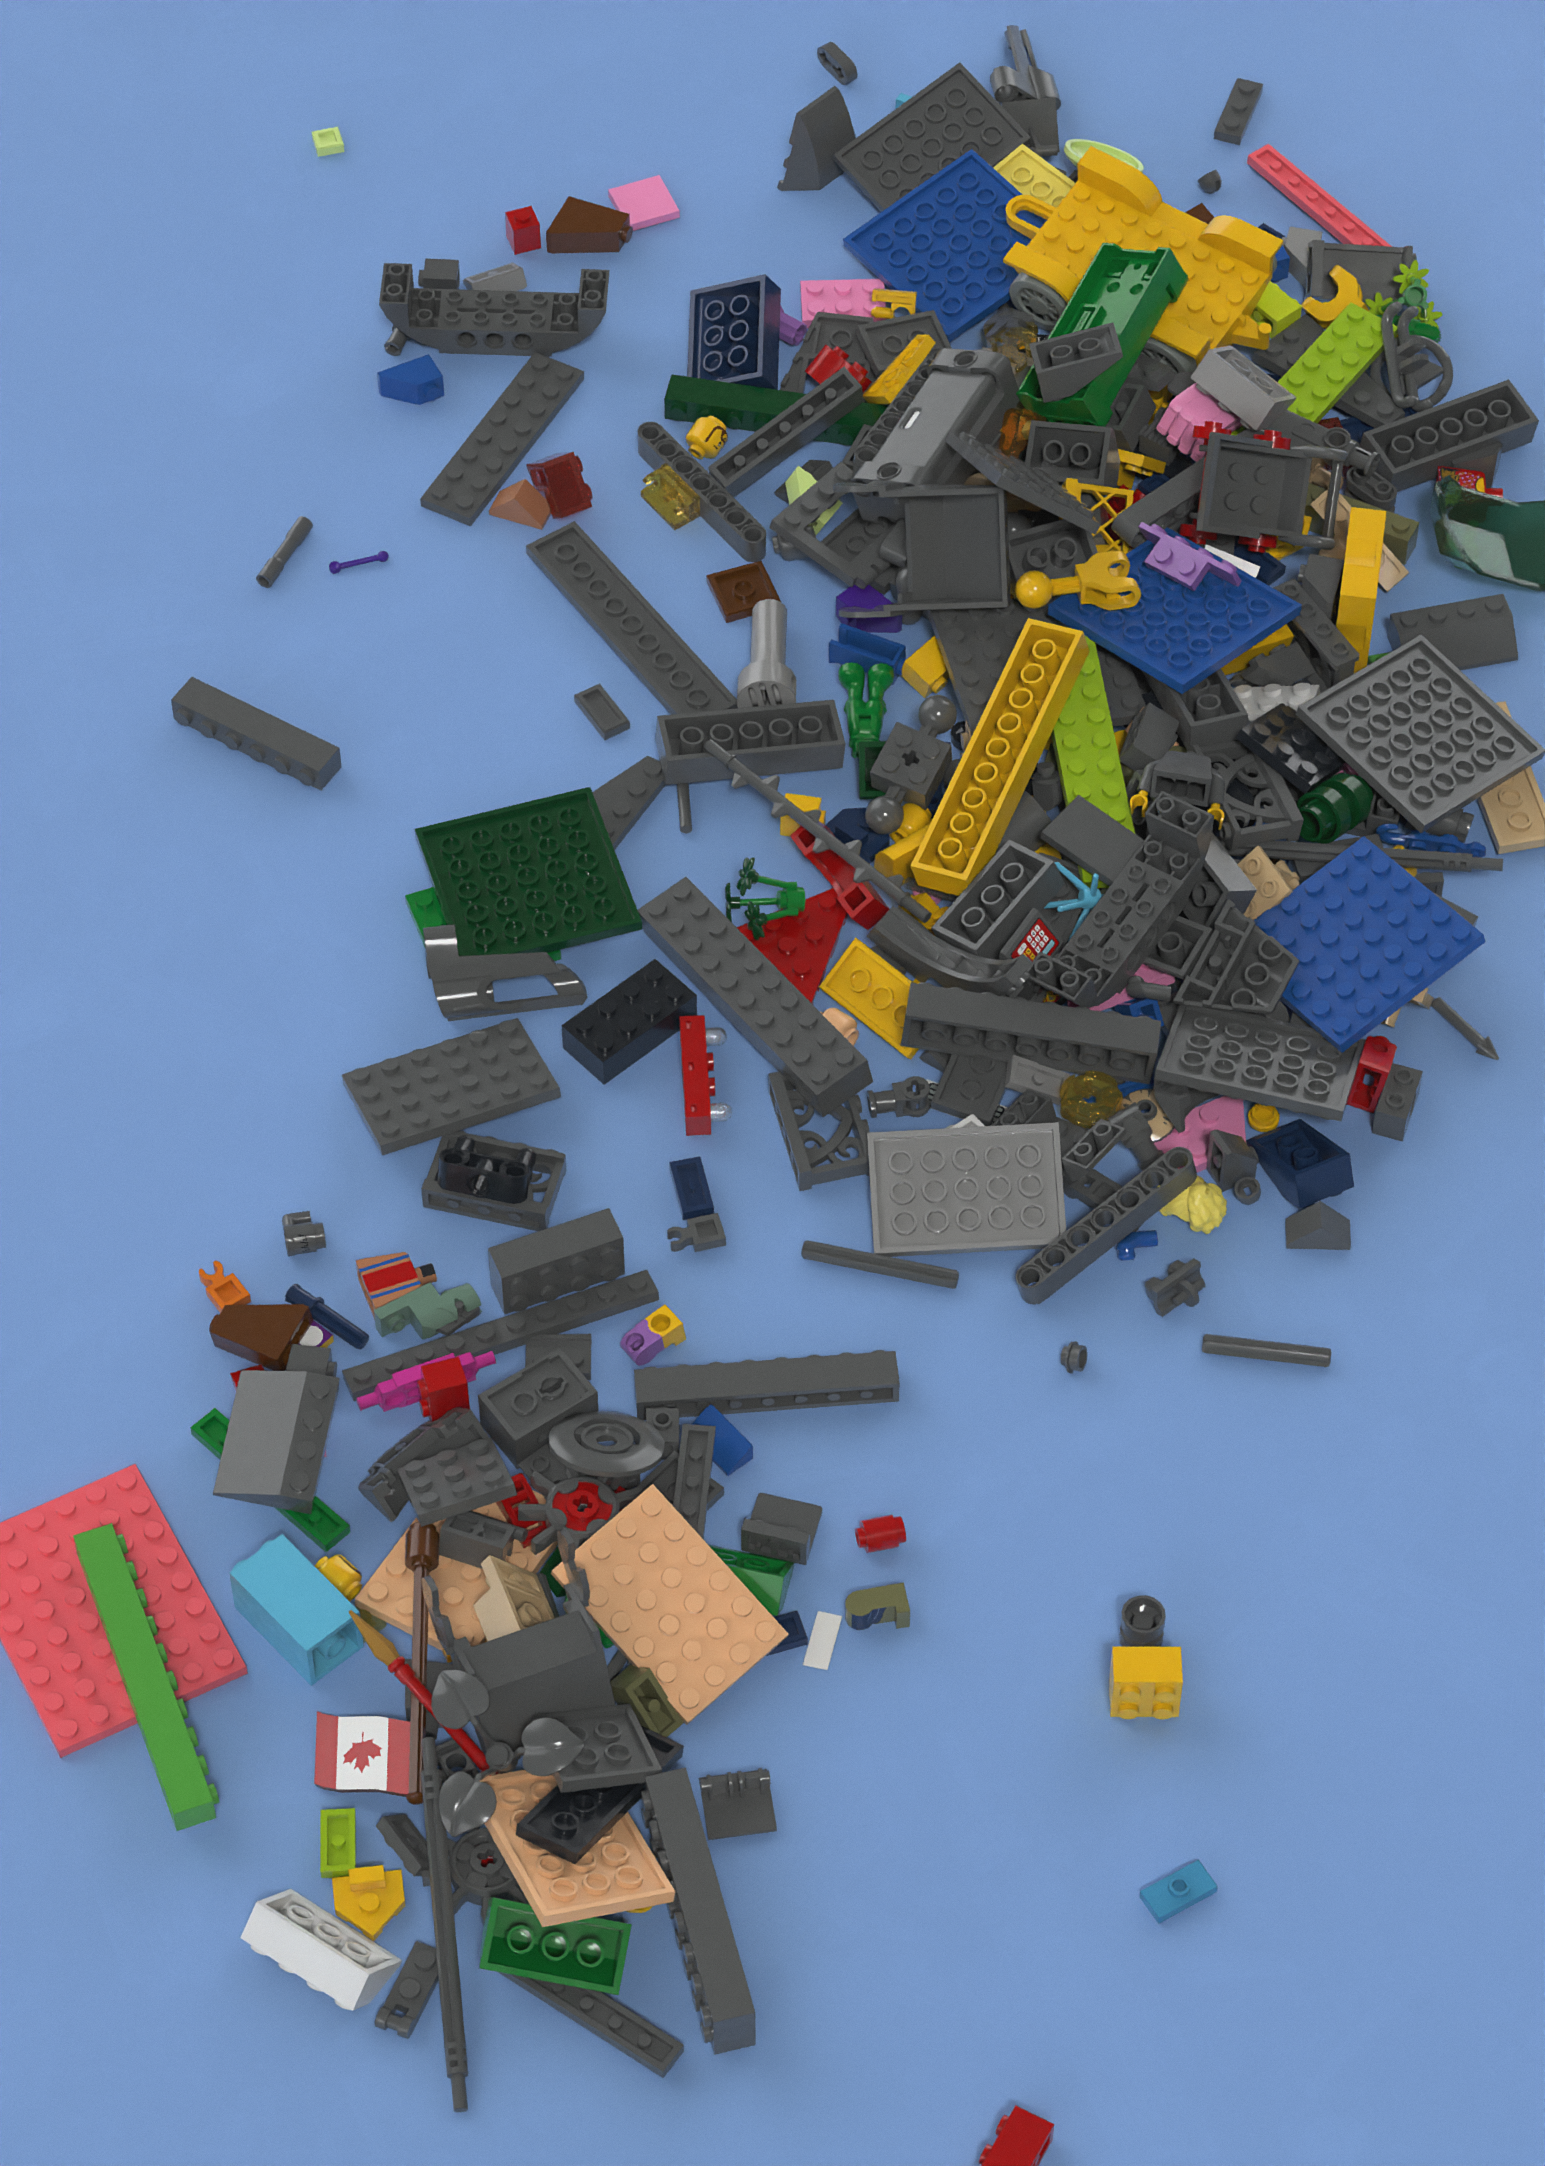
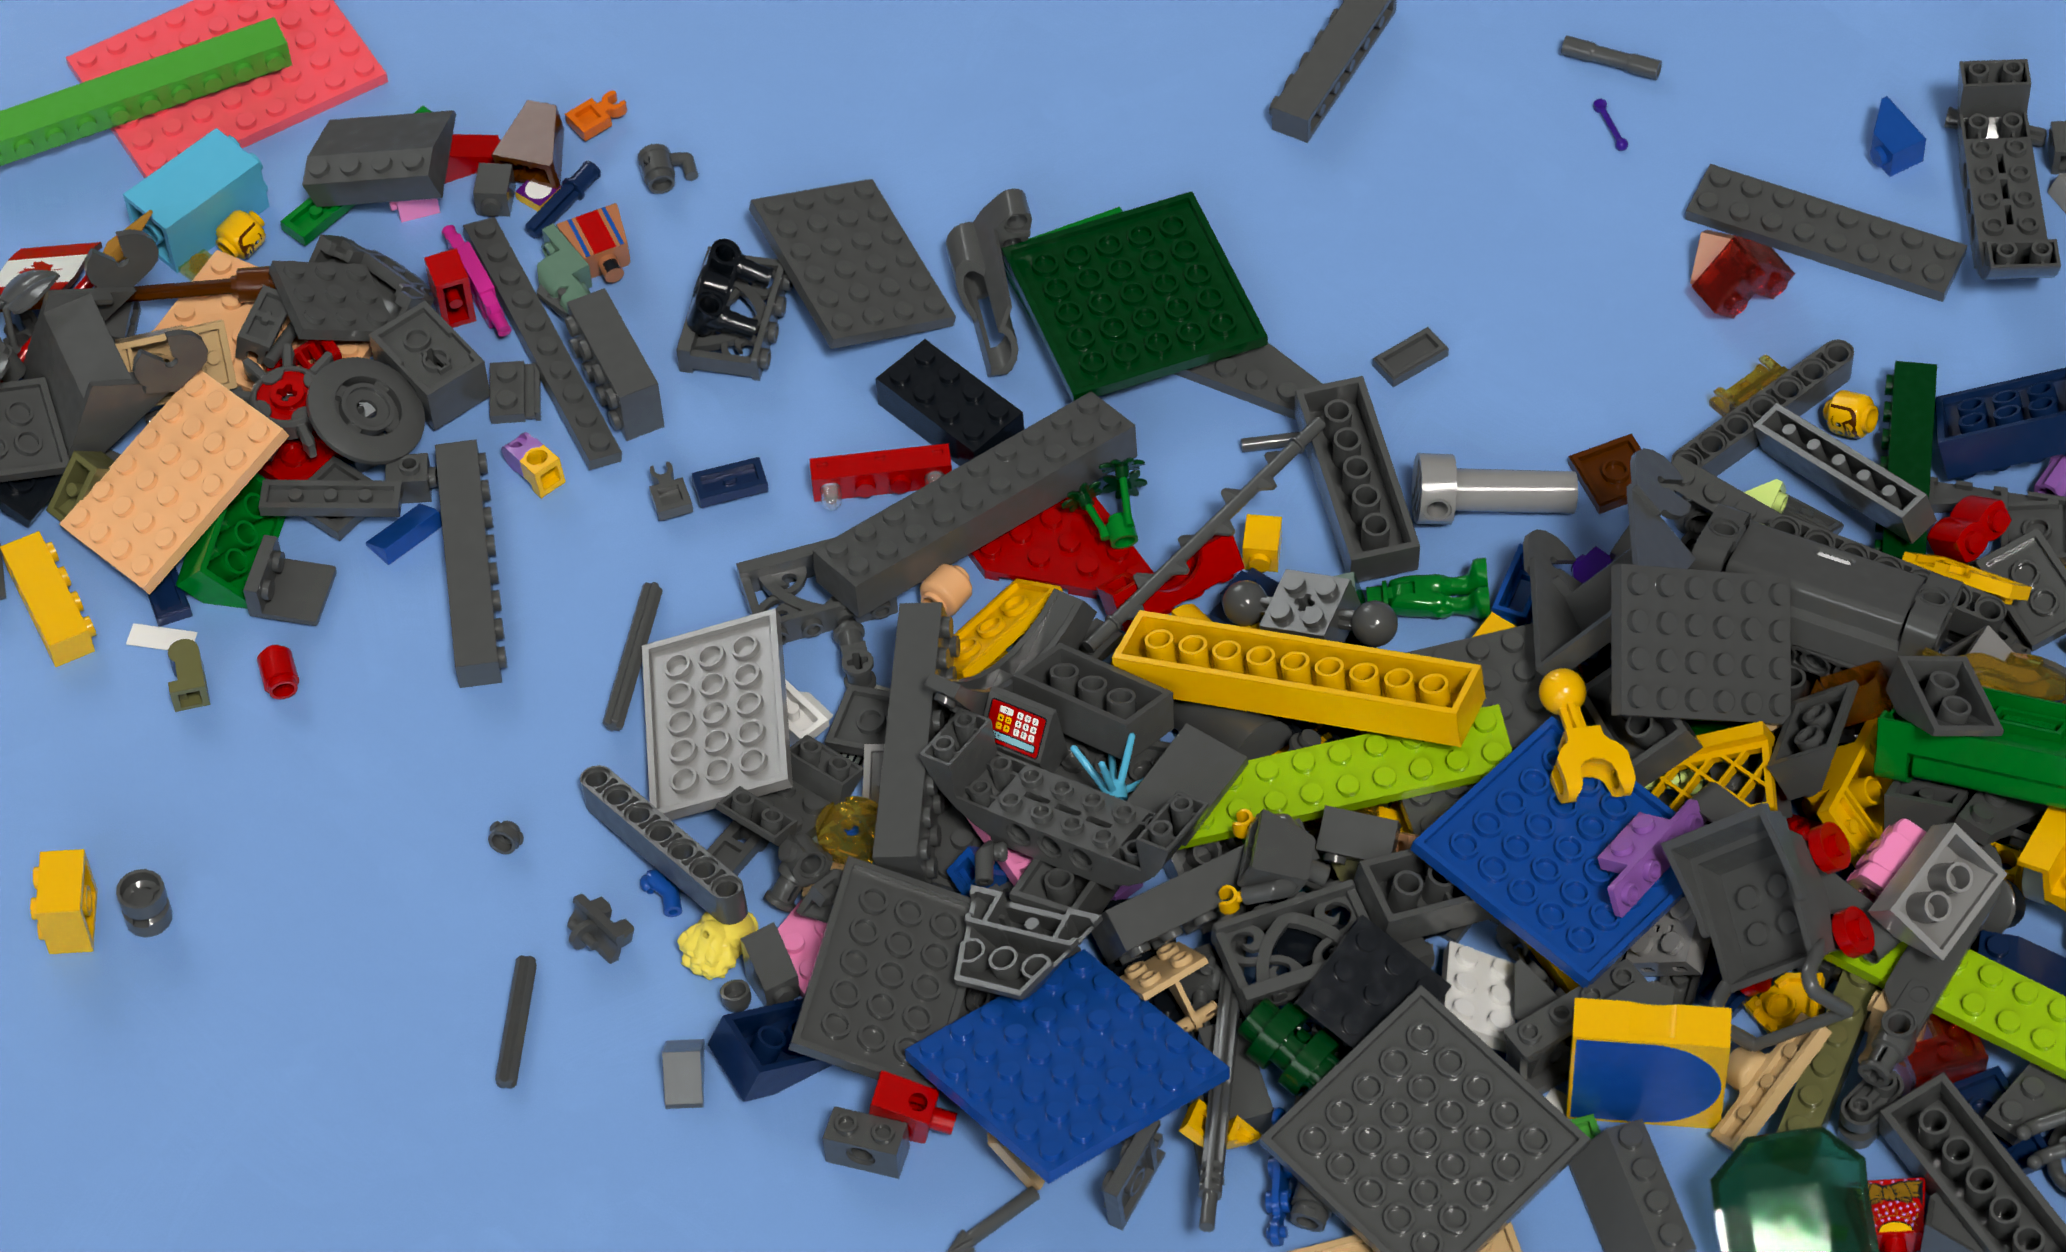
camera: 90 degrees right, 0 degrees up
(628, 622) = (1540, 366): dark grey plate -> none
(778, 1727) = (48, 599): none -> yellow brick

